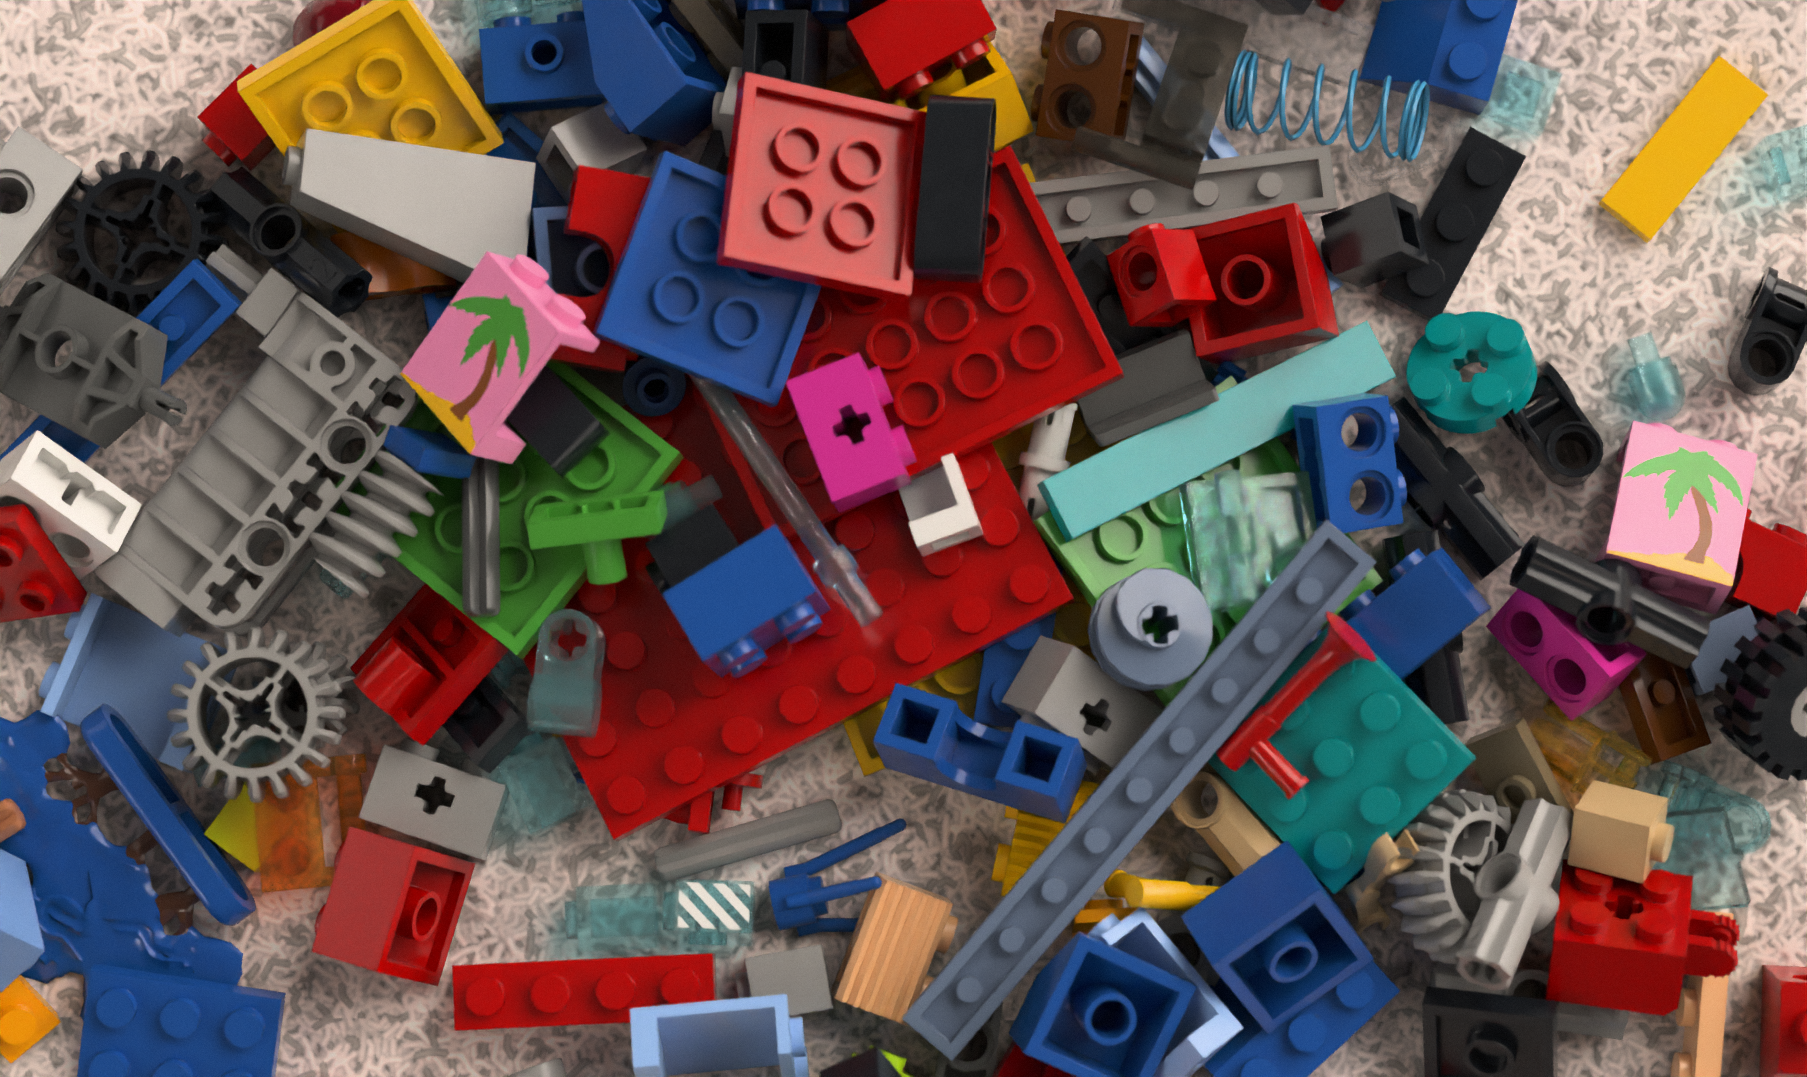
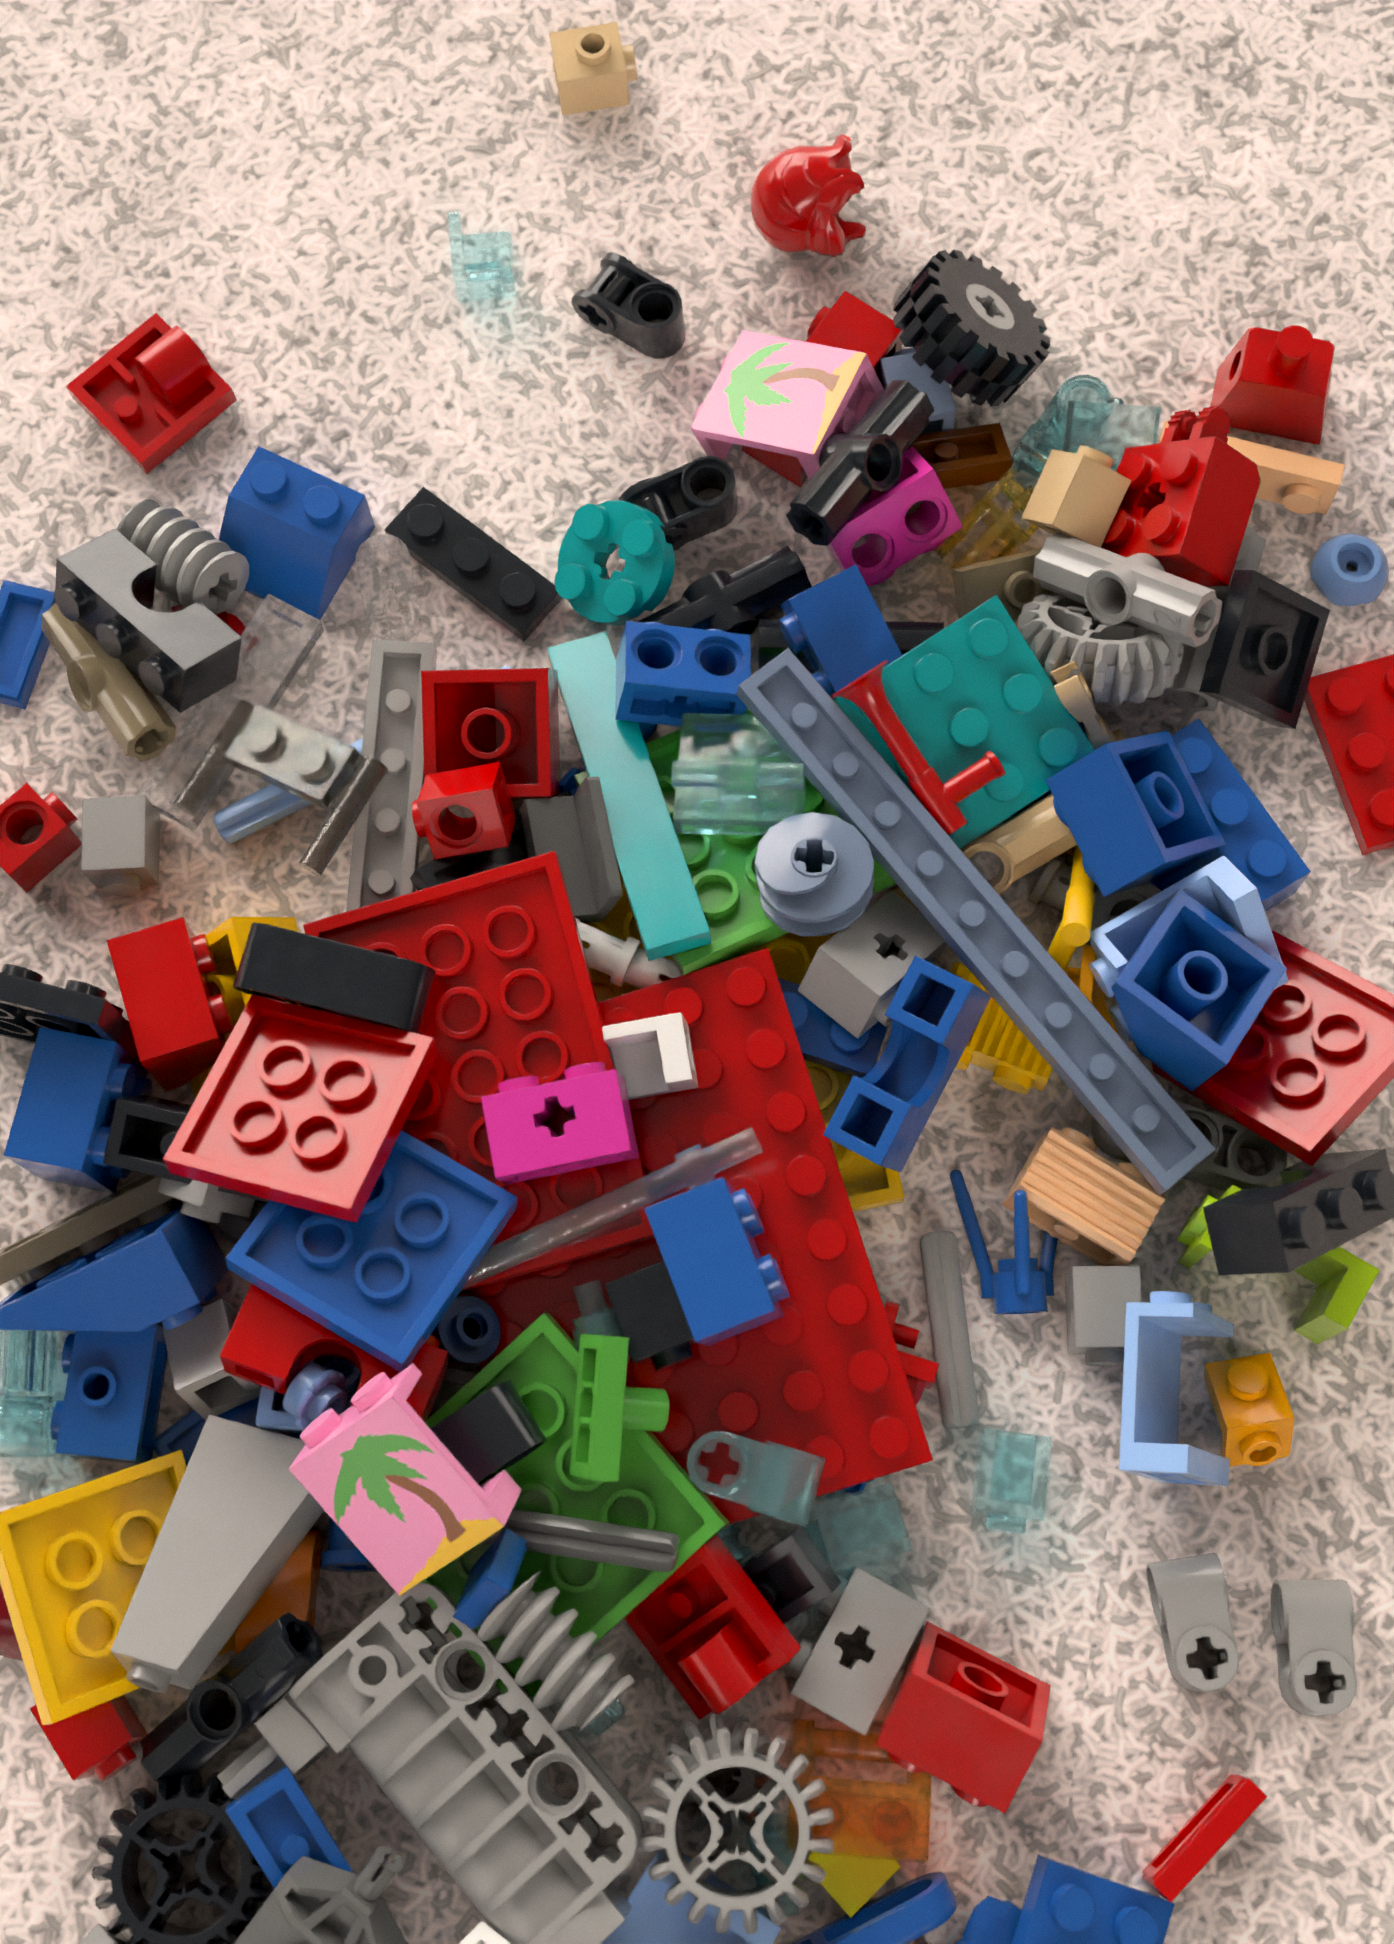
camera: 75 degrees left, 10 degrees down
(563, 258) = (314, 1393): none -> medium blue plate
(576, 990) = (1082, 1528): red brick -> none
(711, 910) = (1017, 1375): clear light blue brick -> none
(1105, 82) = (260, 843): reddish brown brick -> none
(1373, 240) = (472, 625): black brick -> none
(1412, 120) = (372, 566): dark azure piece -> none
(1522, 95) = (371, 476): clear light blue tile -> none
(1654, 380) = (654, 415): clear light blue cylinder -> none
(1683, 149) = (447, 357): yellow tile -> none

